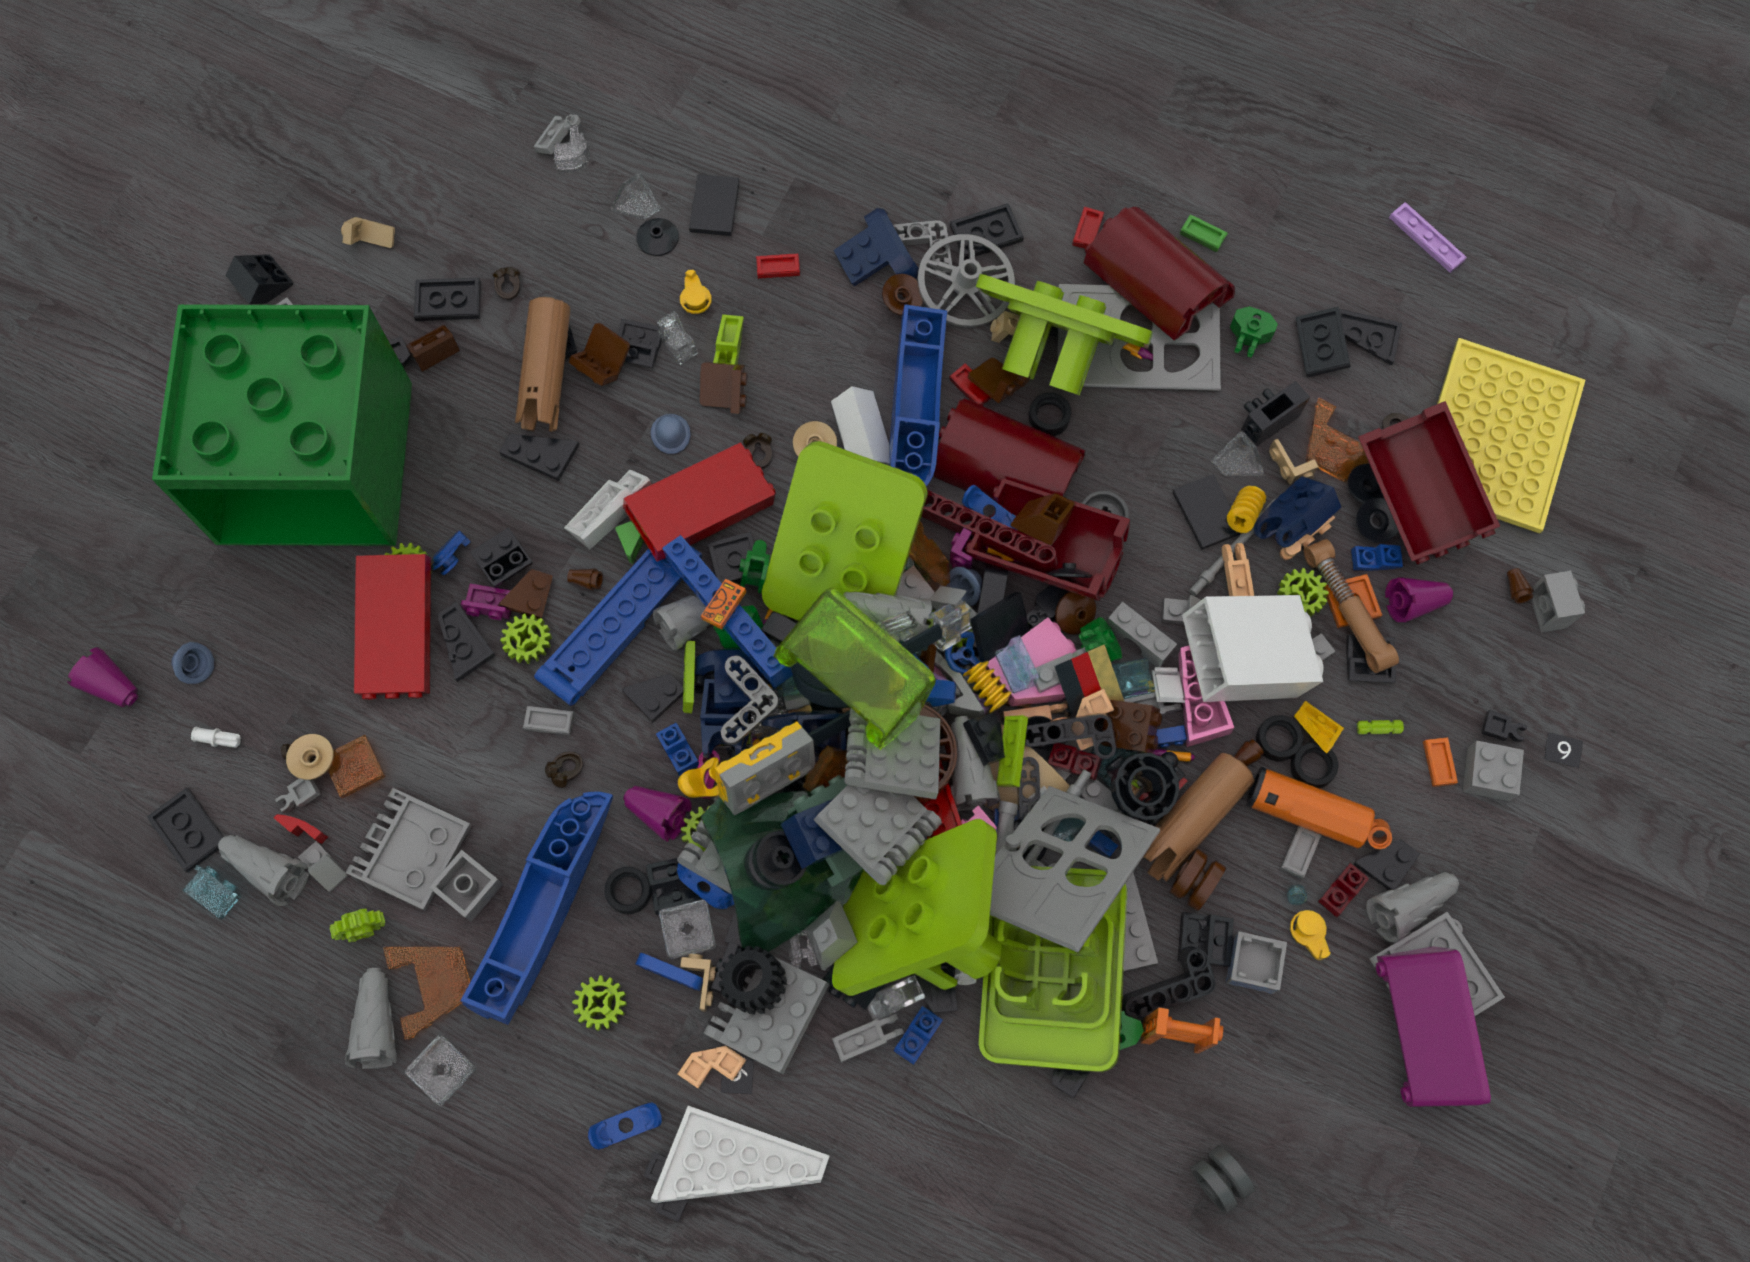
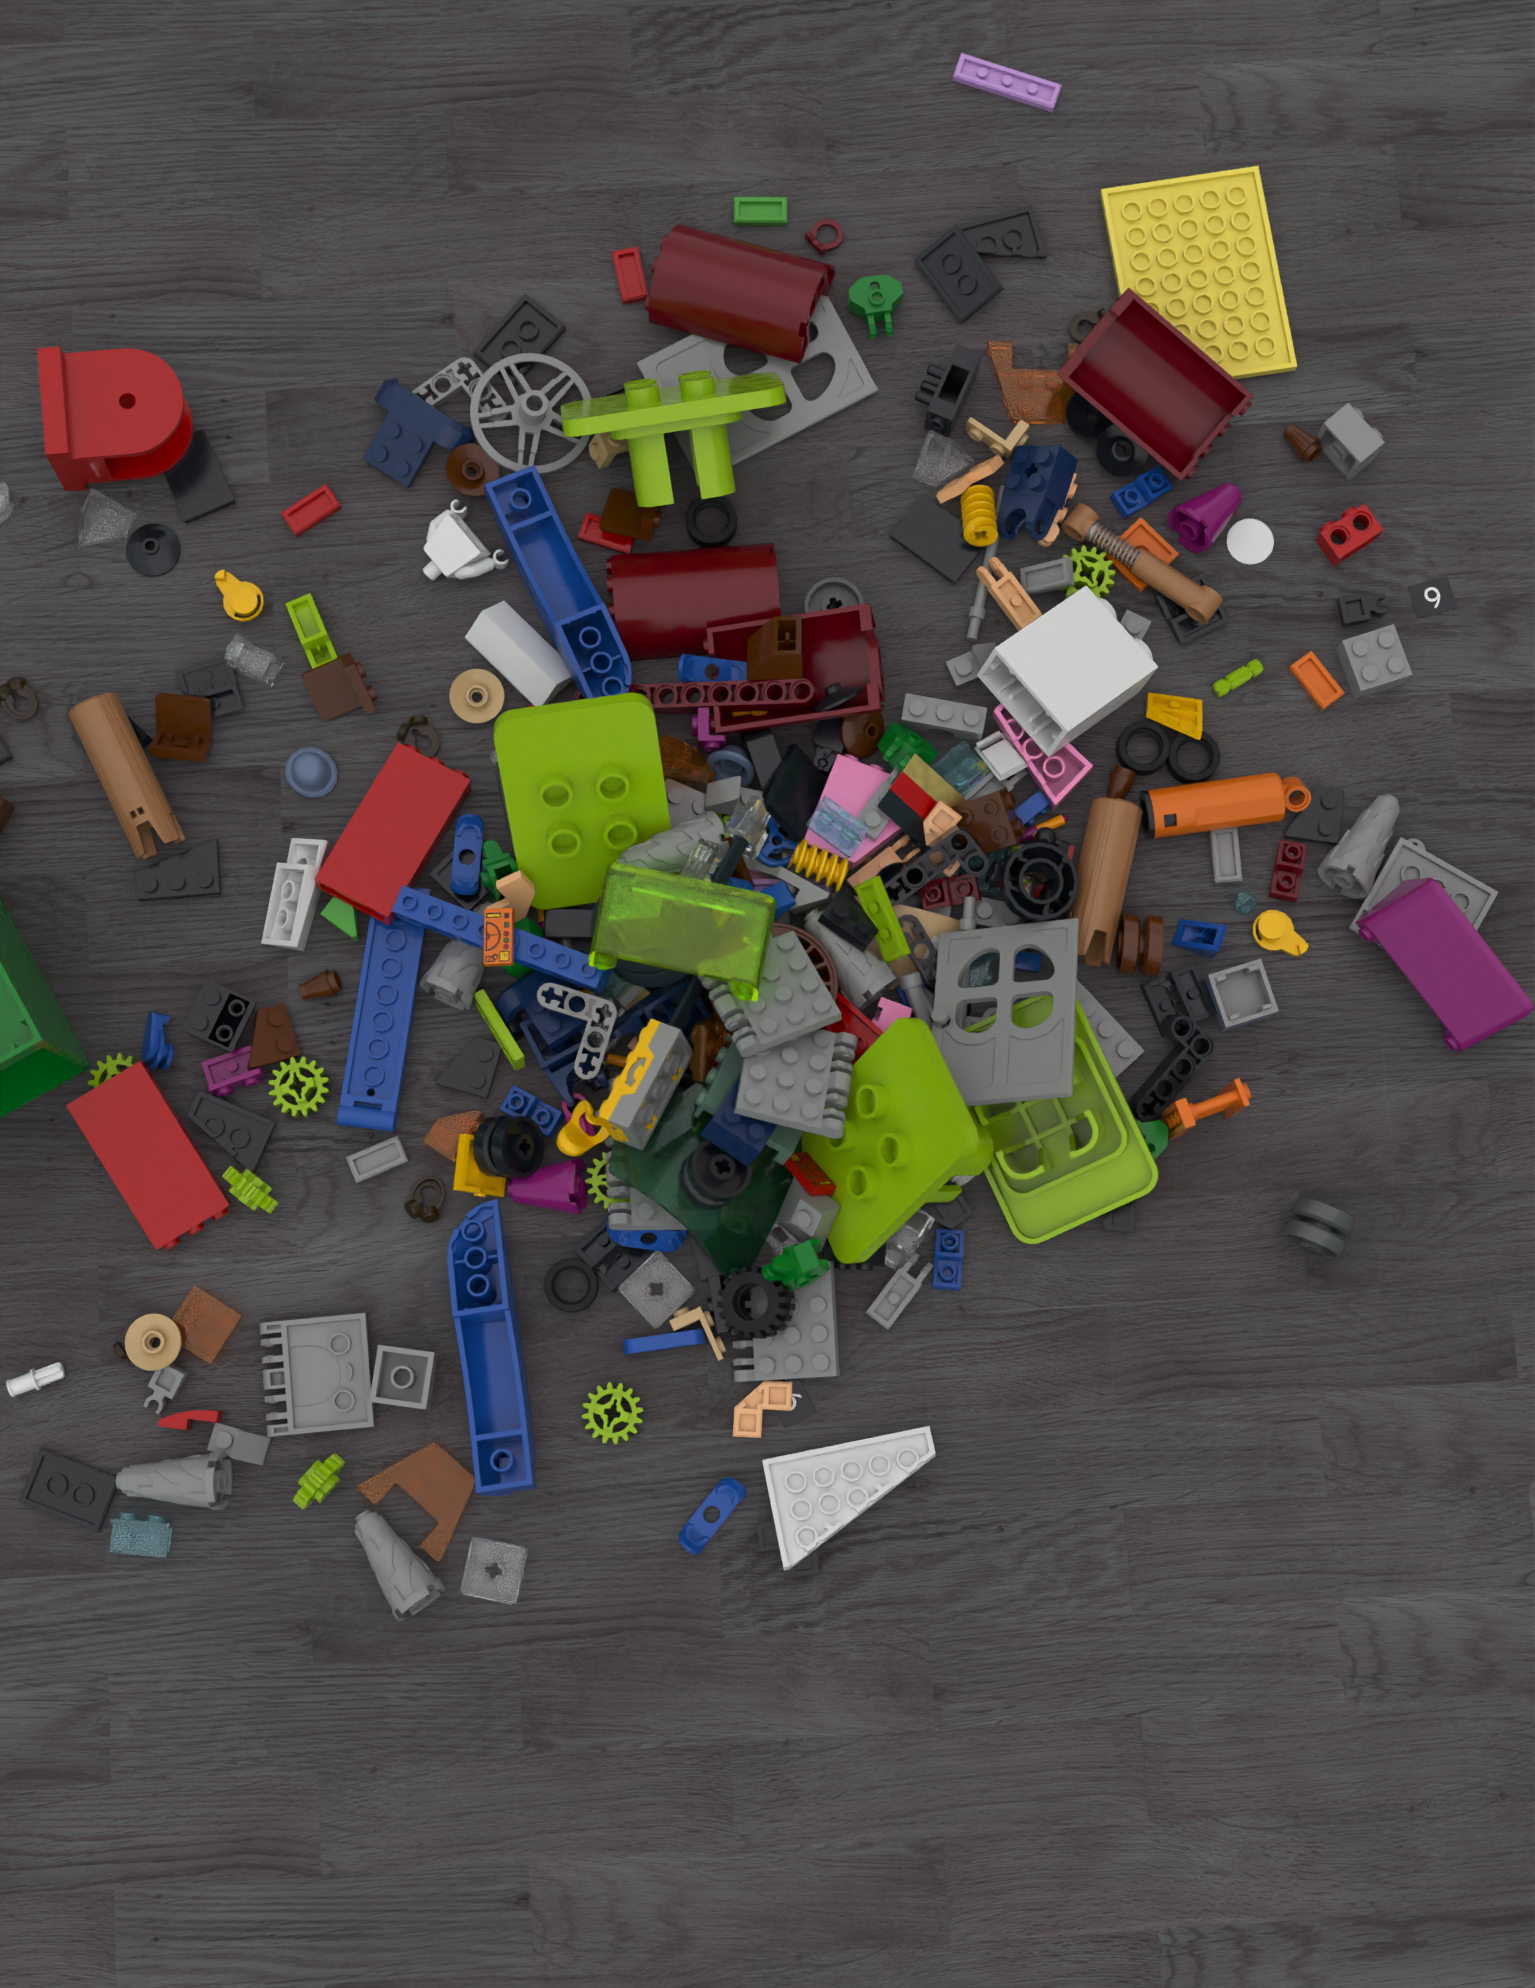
camera: 30 degrees left, 10 degrees up
(445, 688) = (250, 1189): none -> lime gear
(612, 731) = (446, 1130): none -> clear orange slope
(616, 765) = (469, 1176): none -> yellow plate
(643, 761) = (508, 1146): none -> black wheel
(679, 131) = (111, 415): none -> red piece
(749, 531) = (467, 836): none -> blue piece
(758, 586) = (518, 893): none -> light nougat tile
(798, 968) = (797, 1265): none -> green hinge
(848, 906) = (810, 1174): none -> red tile
(860, 339) = (456, 548): none -> white torso
(1234, 278) = (822, 248): none -> dark red piece
(1247, 901) = (1199, 937): none -> blue slope
(1253, 481) = (976, 473): none -> light nougat tile
(1274, 577) = (1047, 576): none -> light grey tile
(1441, 635) = (1250, 541): none -> white sticker
(1522, 673) = (1352, 538): none -> red brick

